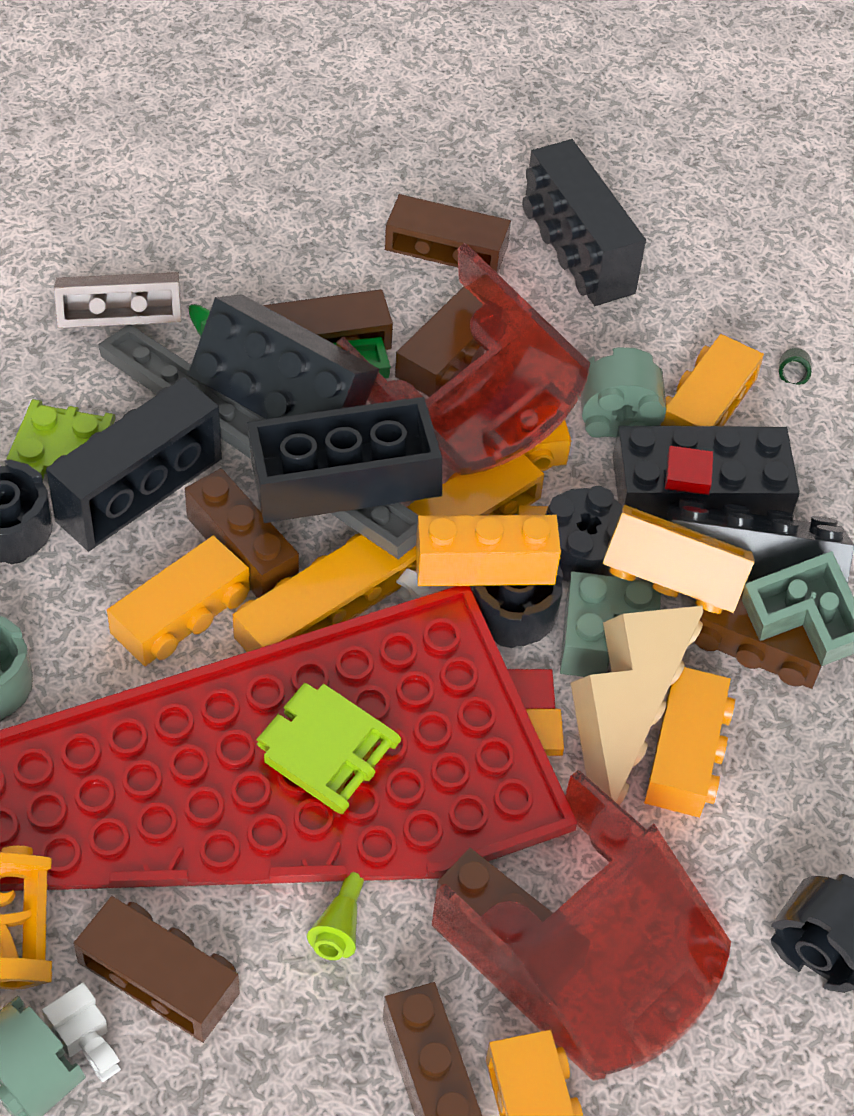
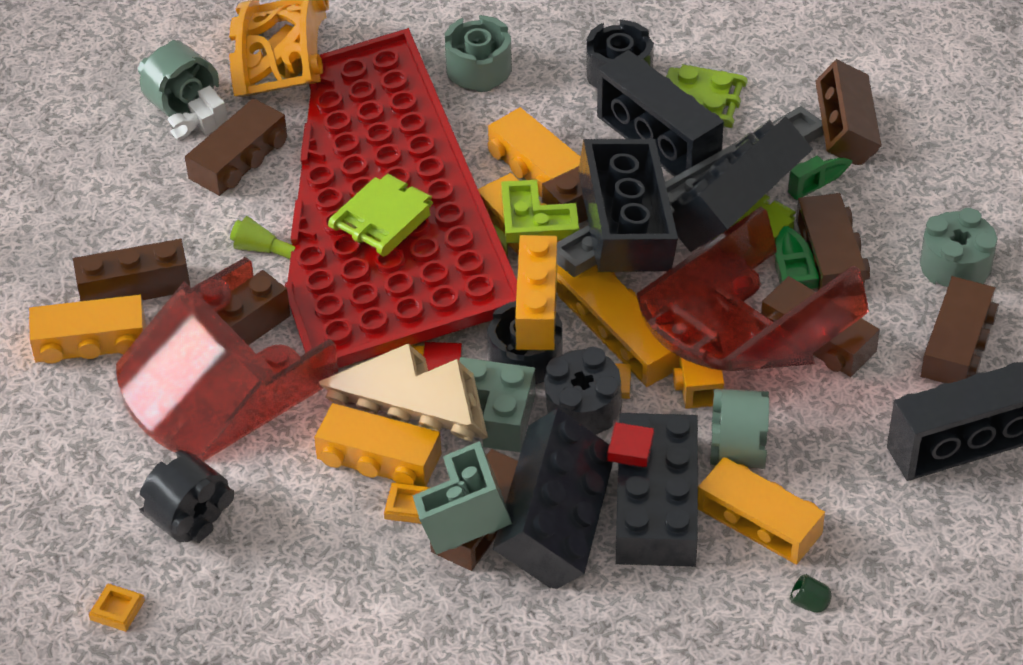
camera: 100 degrees right, 5 degrees down
(333, 584) = (527, 217): none -> lime plate
(335, 224) = (958, 246): none -> sand green brick
(678, 560) = (523, 412): brick -> none
(754, 713) = (400, 503): none -> light orange tile

